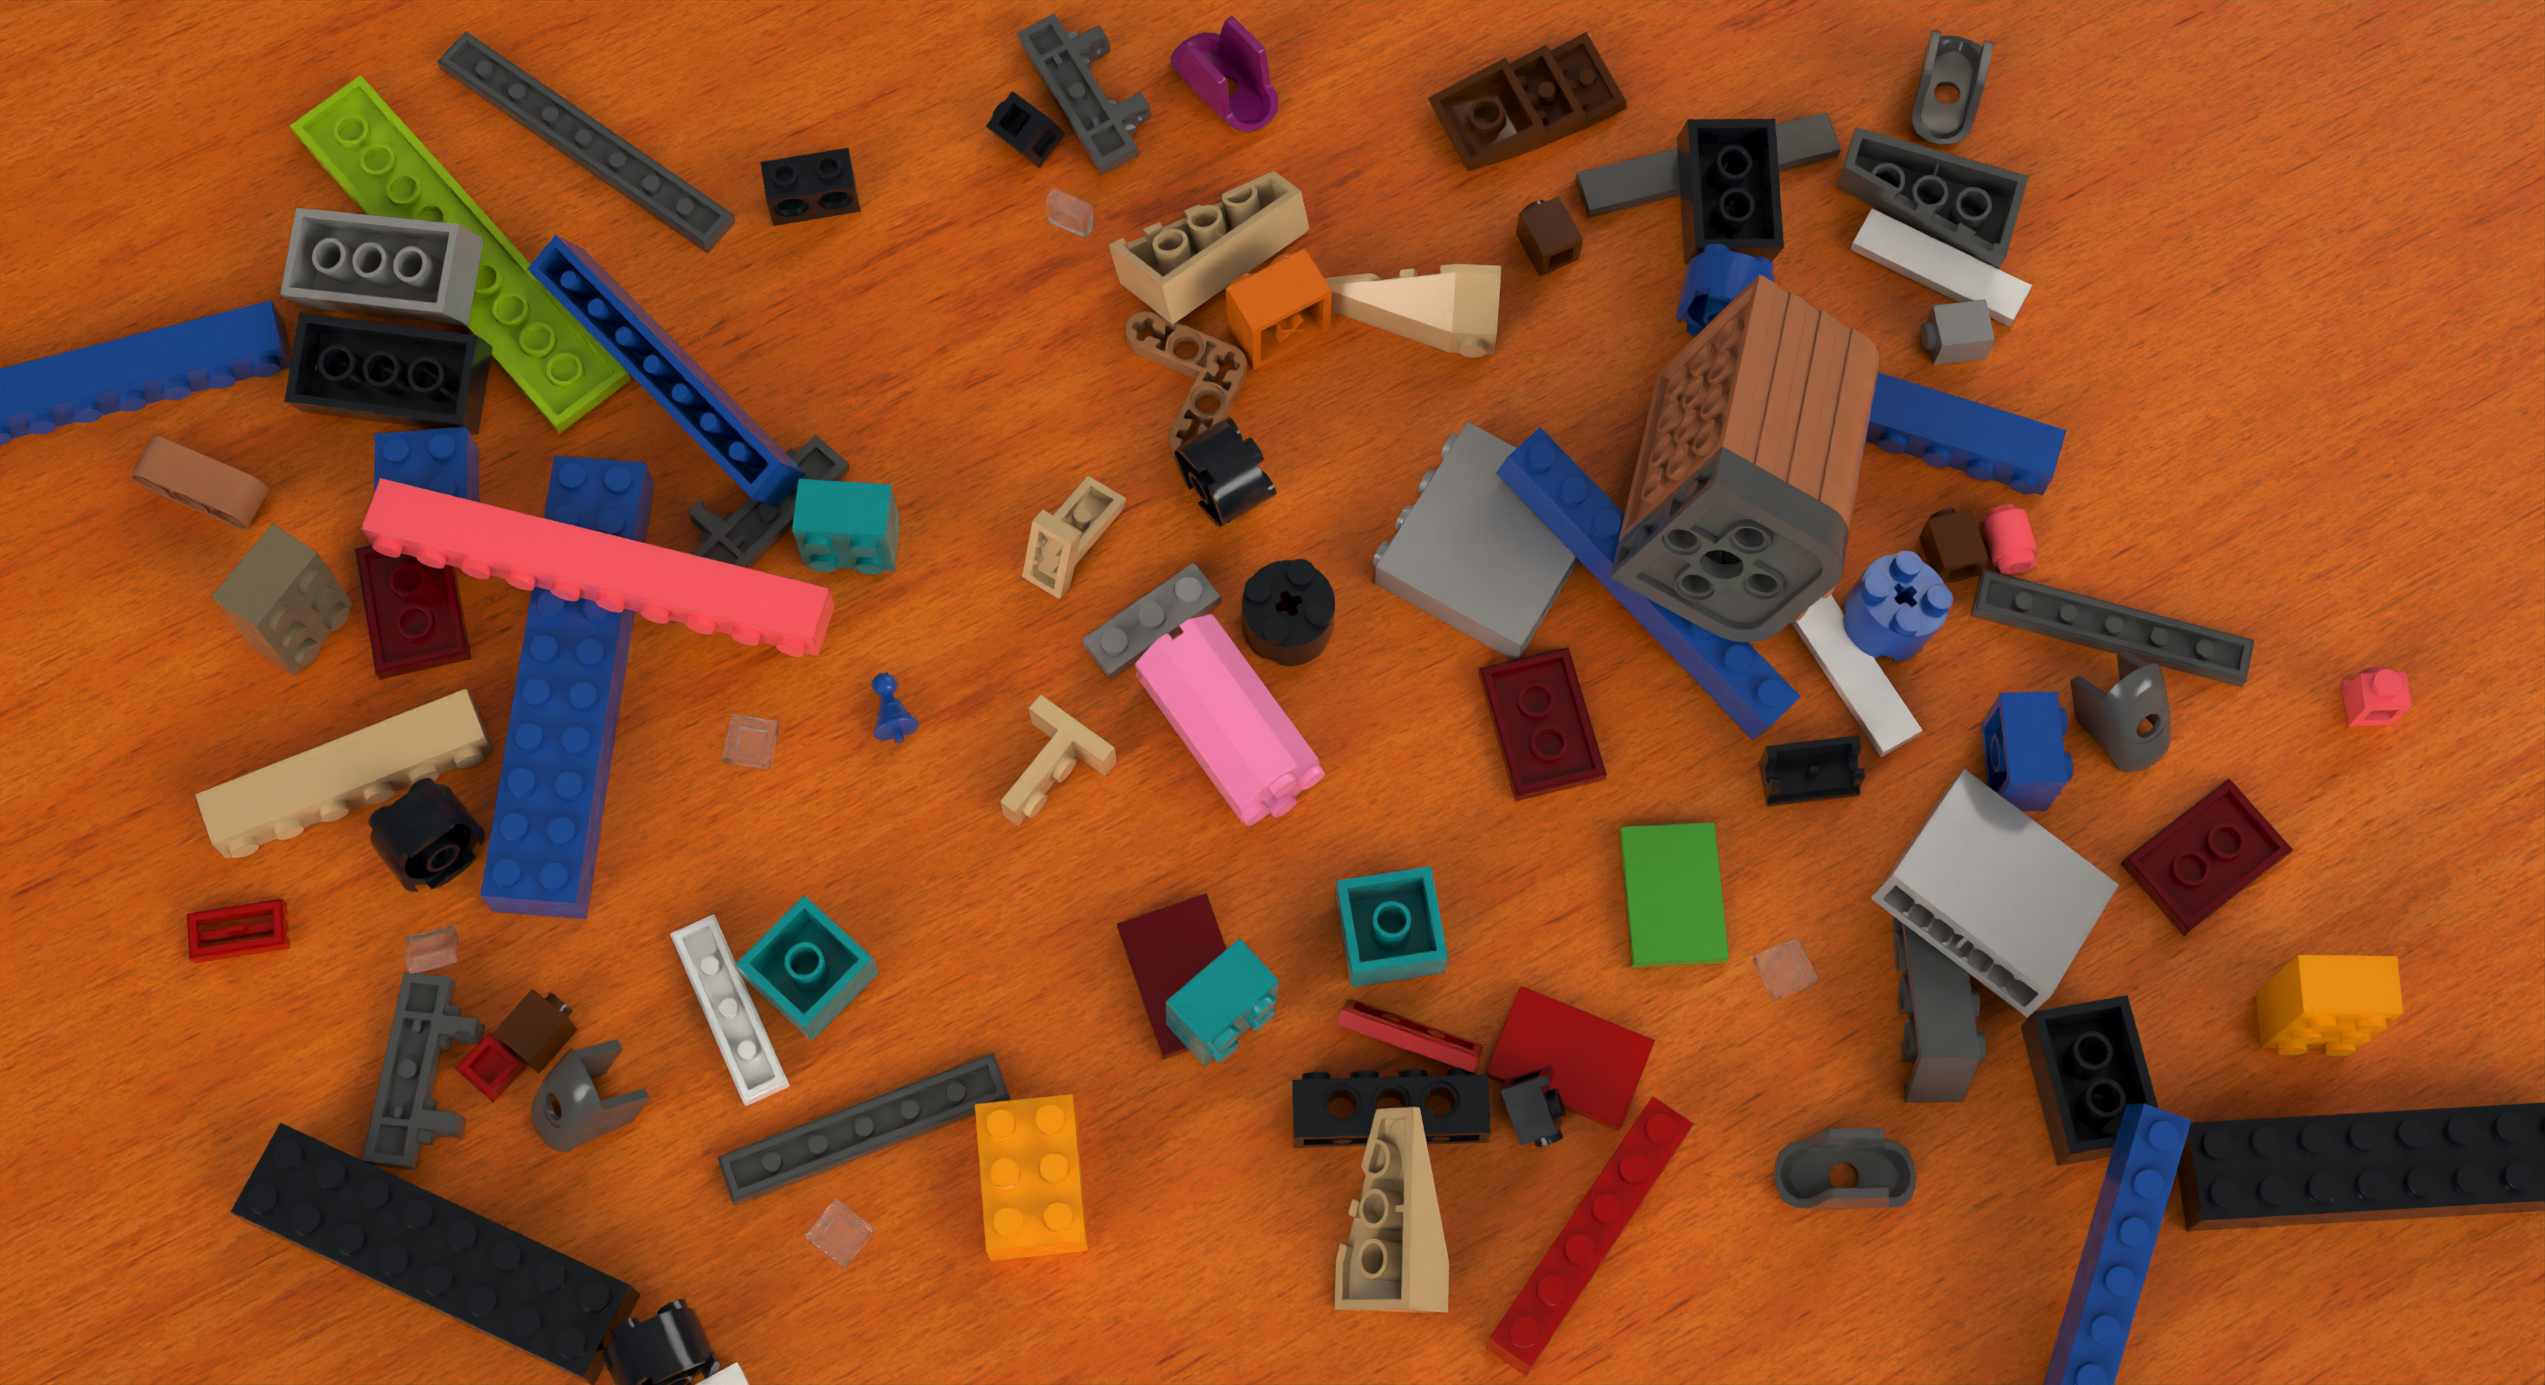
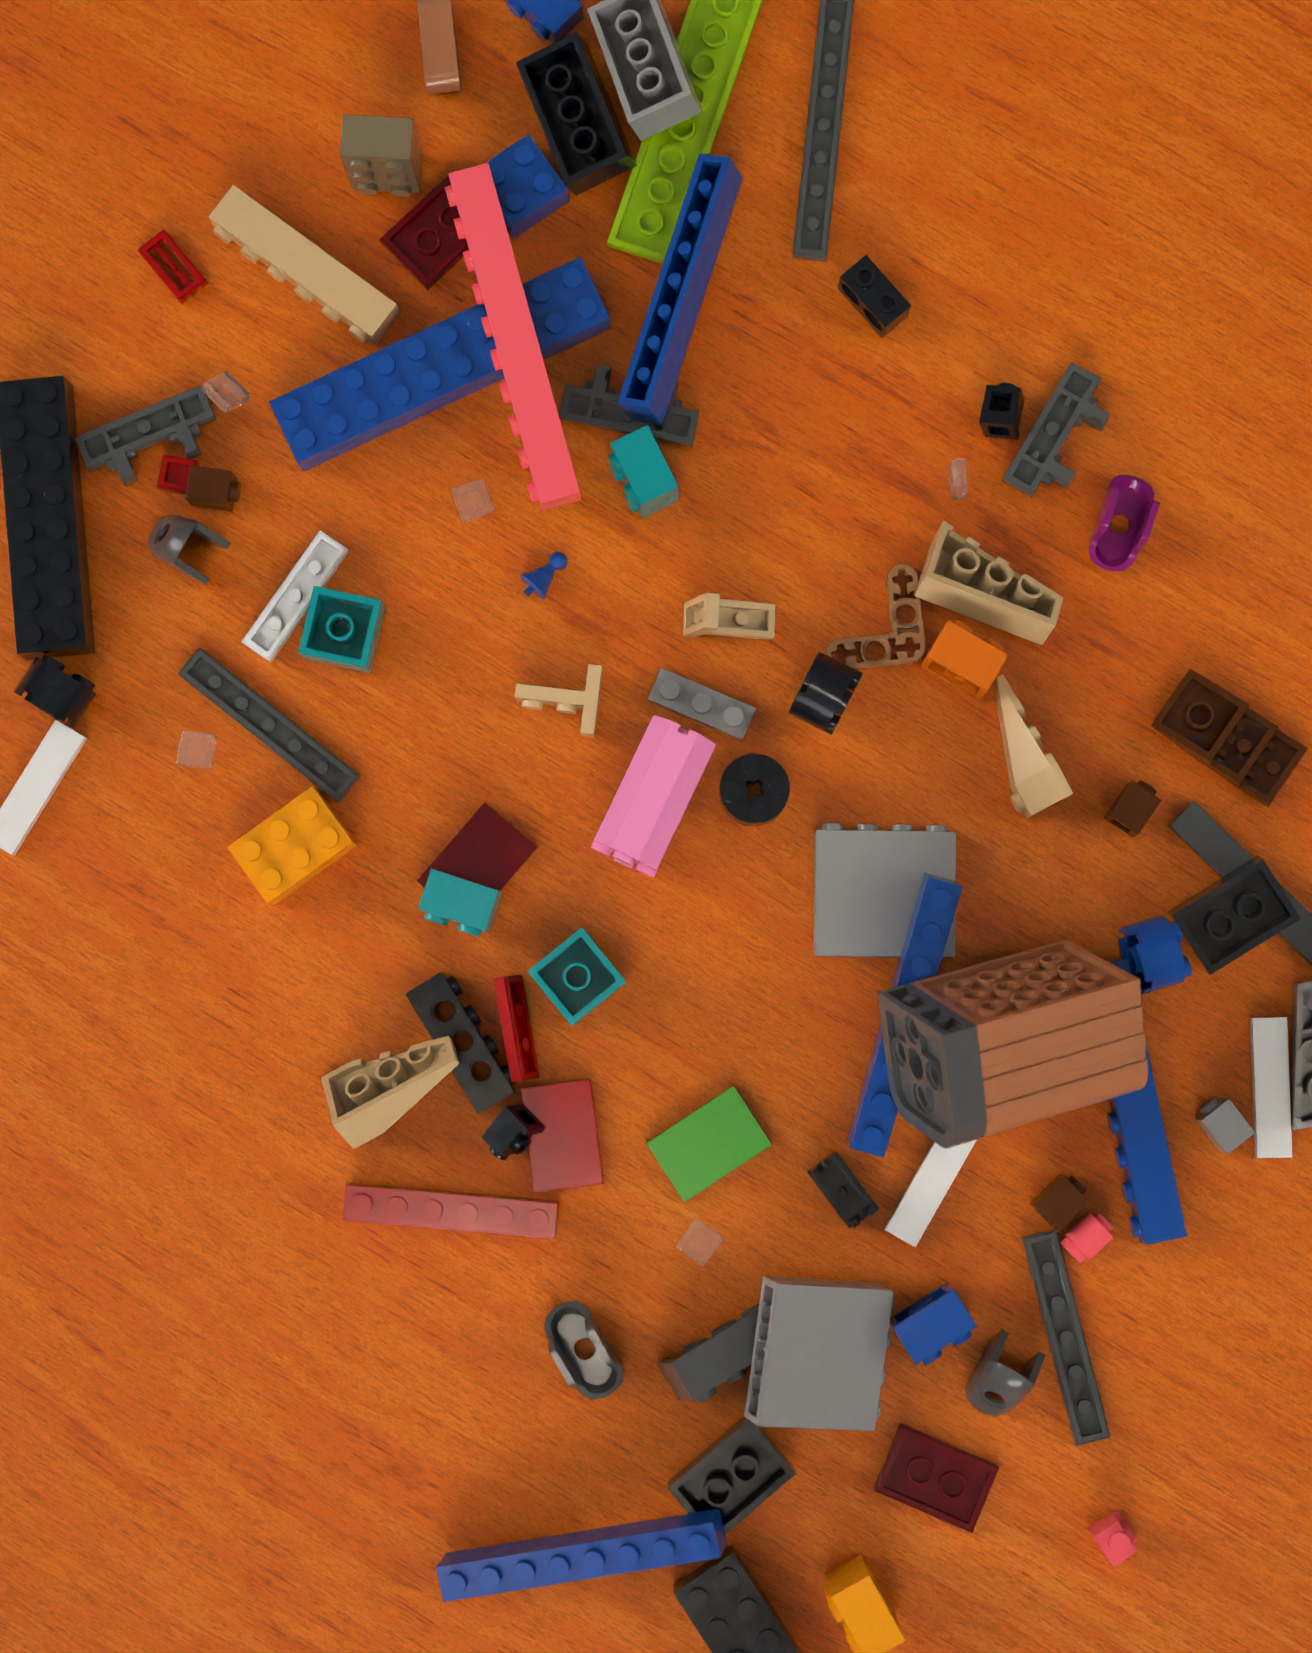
camera: 65 degrees right, 15 degrees up
(425, 835) = (289, 342): black brick -> none
(1542, 724) = (777, 996): dark red tile -> none
(1896, 607) = (1007, 1191): blue brick -> none

